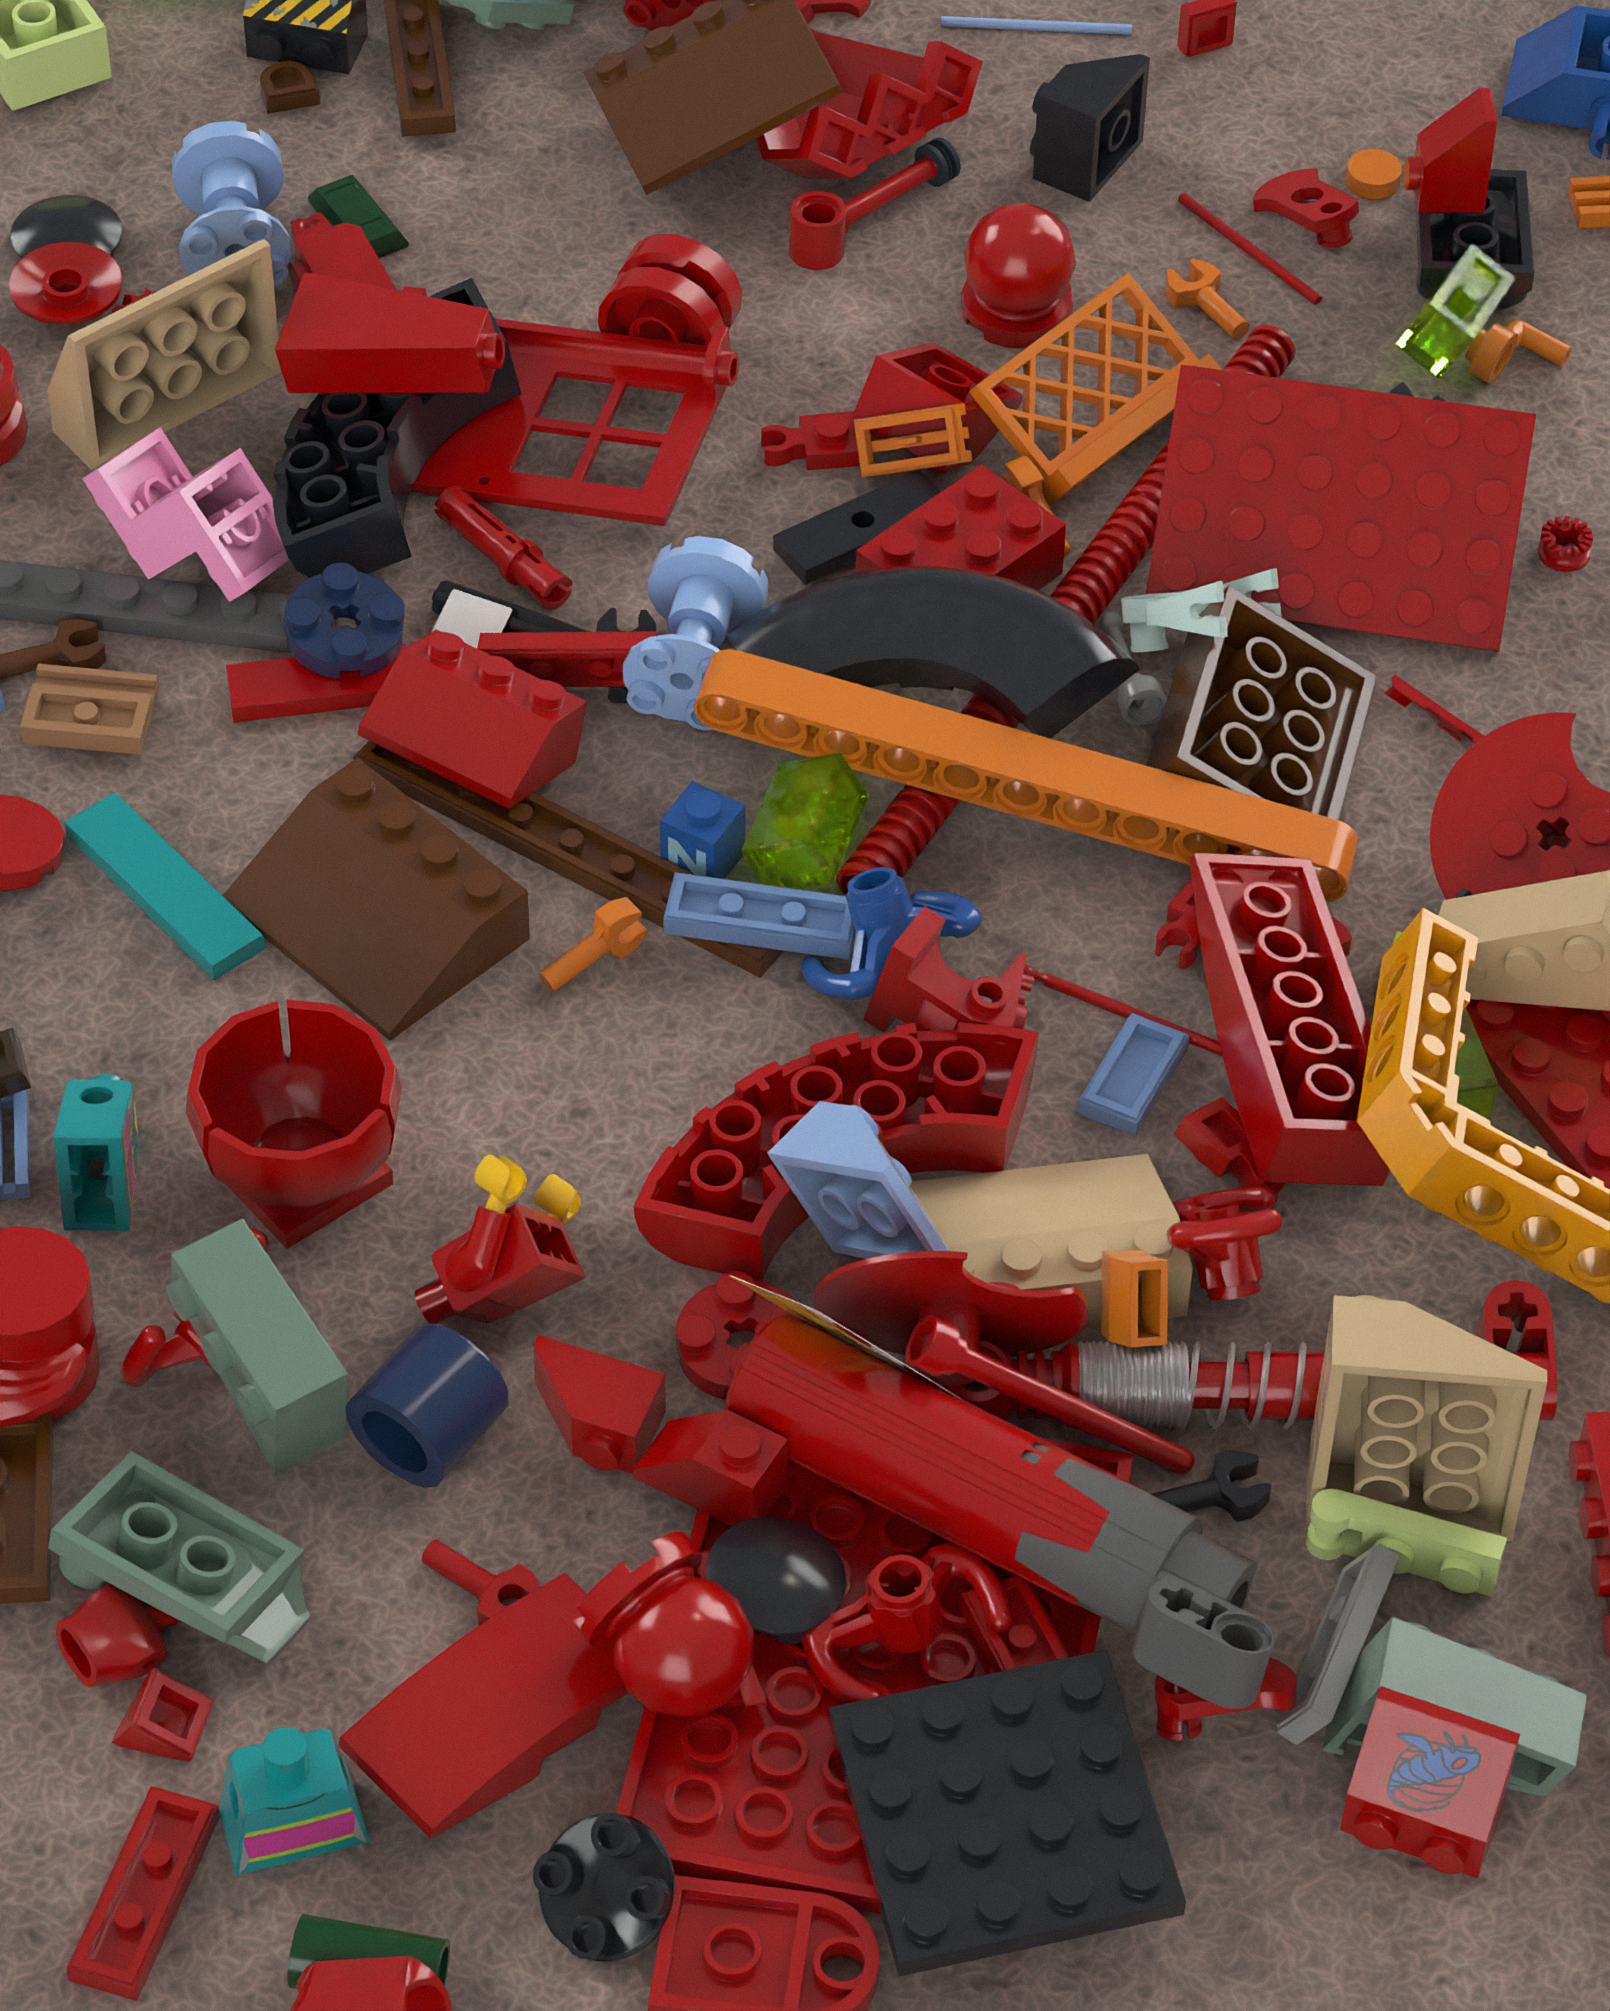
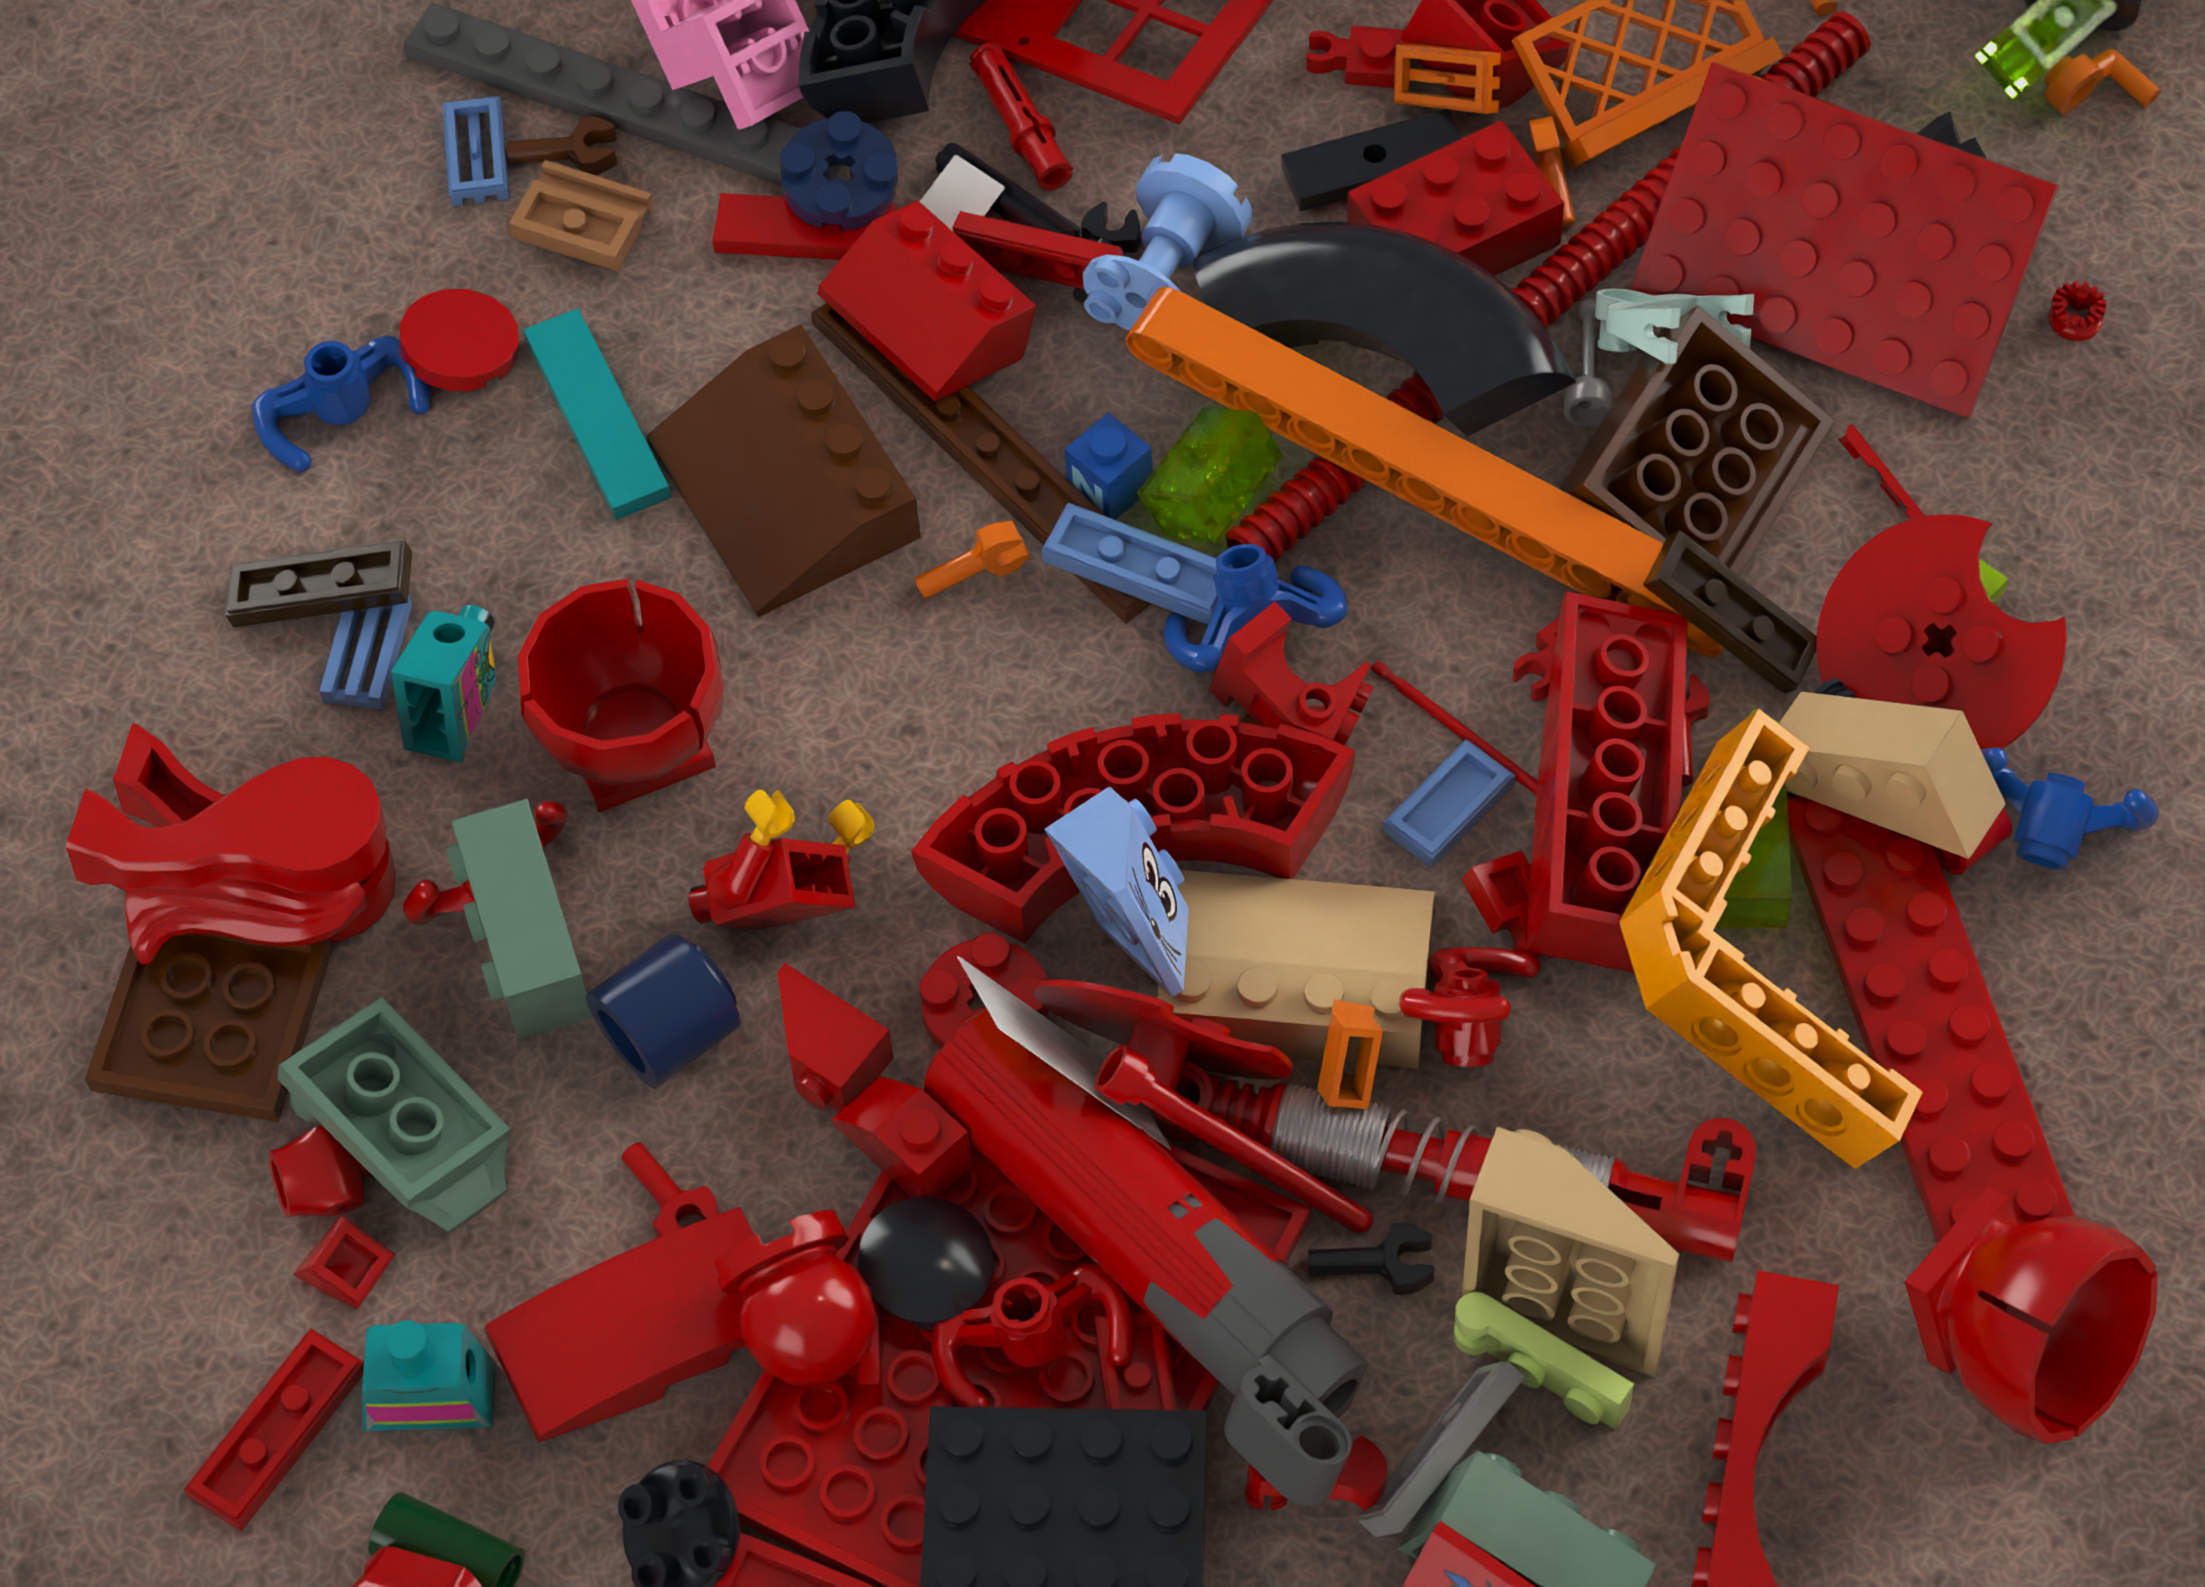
camera: 20 degrees right, 10 degrees up
(1349, 847) = (1731, 612): none -> dark brown tile

